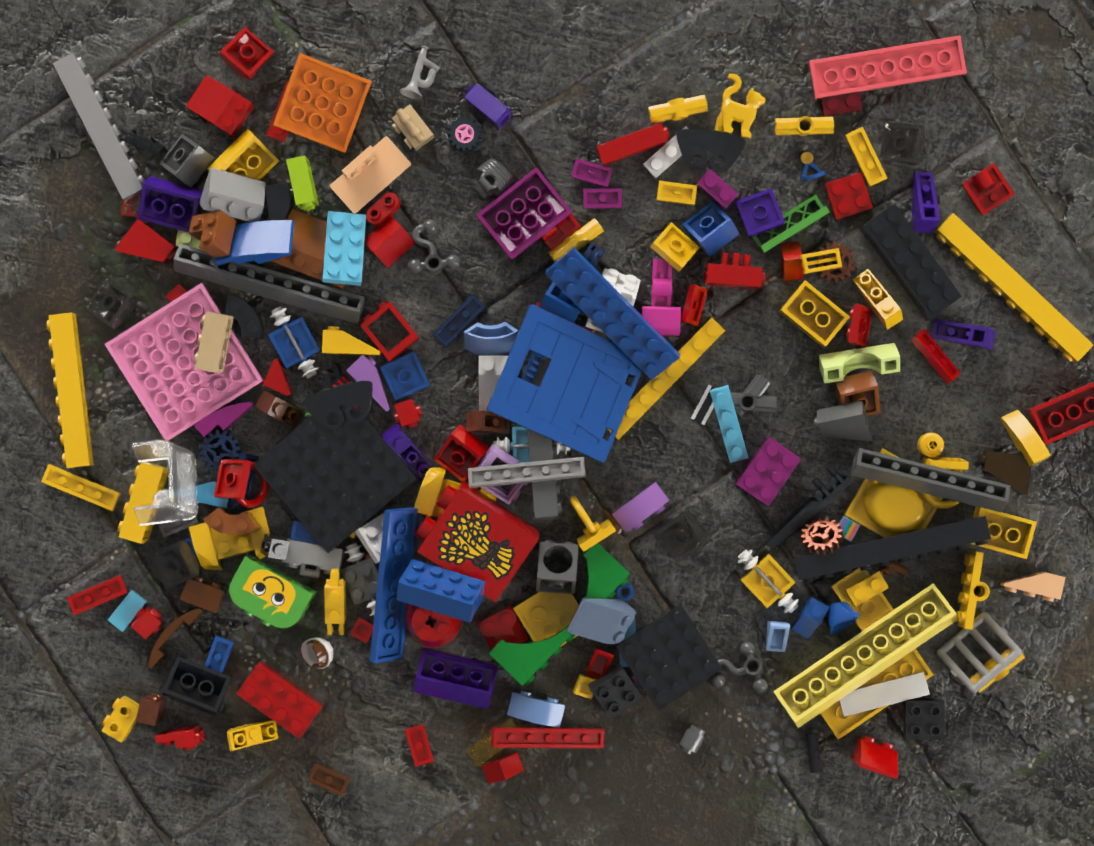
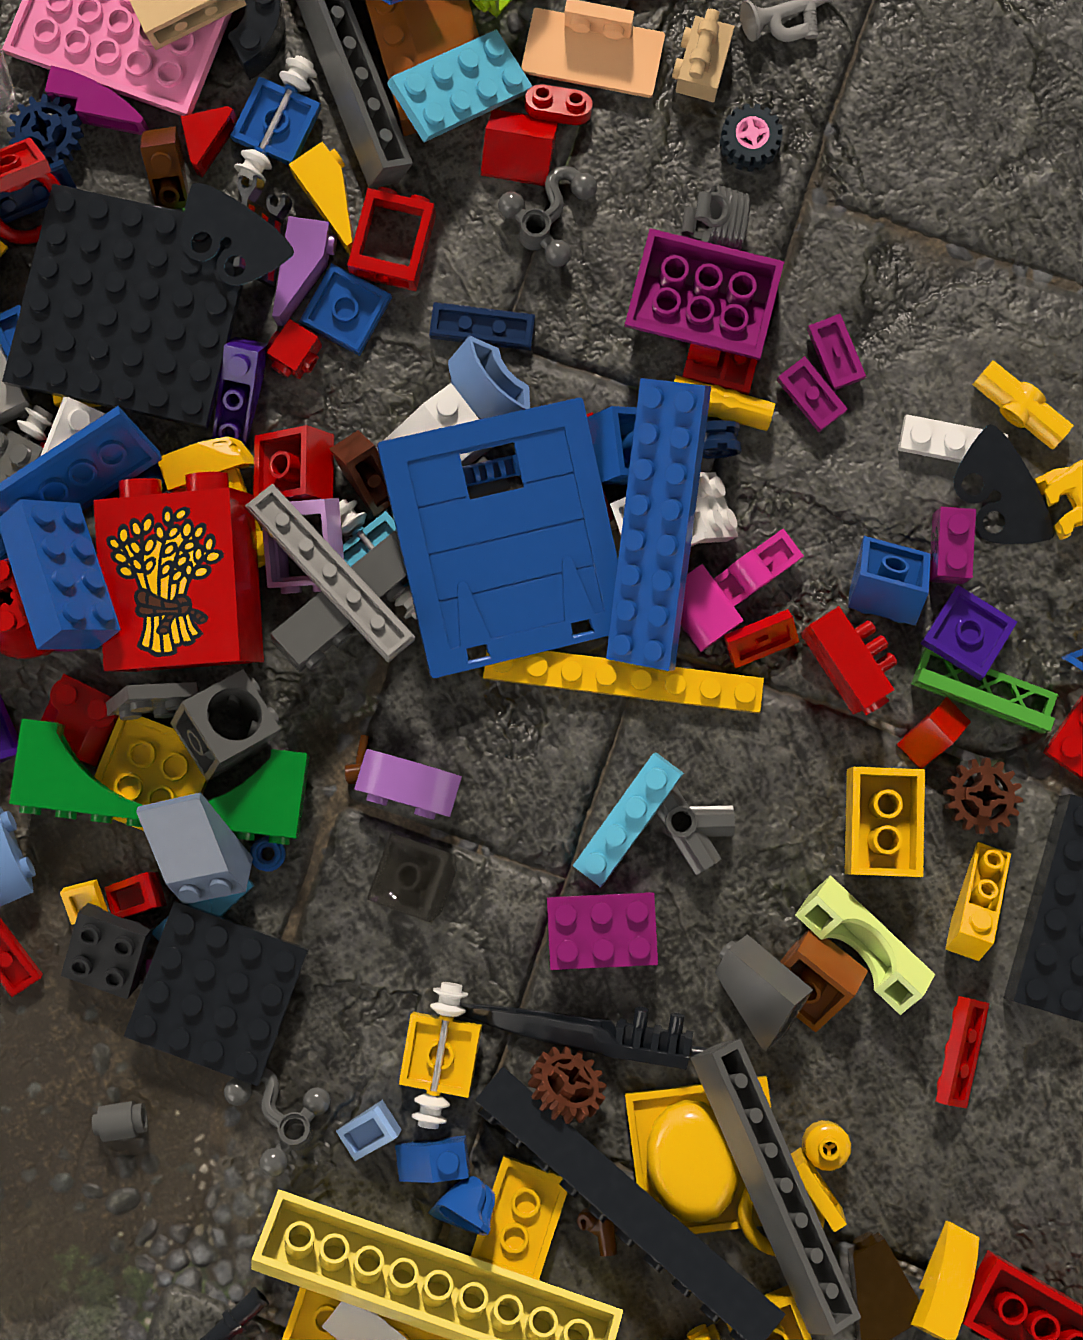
camera: 55 degrees right, 5 degrees down
(488, 106) = (816, 138): dark purple slope -> none
(522, 591) = (150, 698): none -> dark grey plate
(594, 531) = (320, 738): yellow tile -> none
(632, 144) = (922, 378): red brick -> none
(675, 247) = (823, 546): yellow plate -> none
(676, 193) = (902, 493): yellow plate -> none
(704, 407) = (622, 768): sticker -> none
(805, 264) = (948, 752): yellow tile -> none
(849, 528) = (609, 1116): tile -> none
(860, 325) = (920, 903): red plate -> none
(866, 588) = (539, 1213): yellow plate -> none
(964, 334) = (1028, 1070): dark purple slope -> none

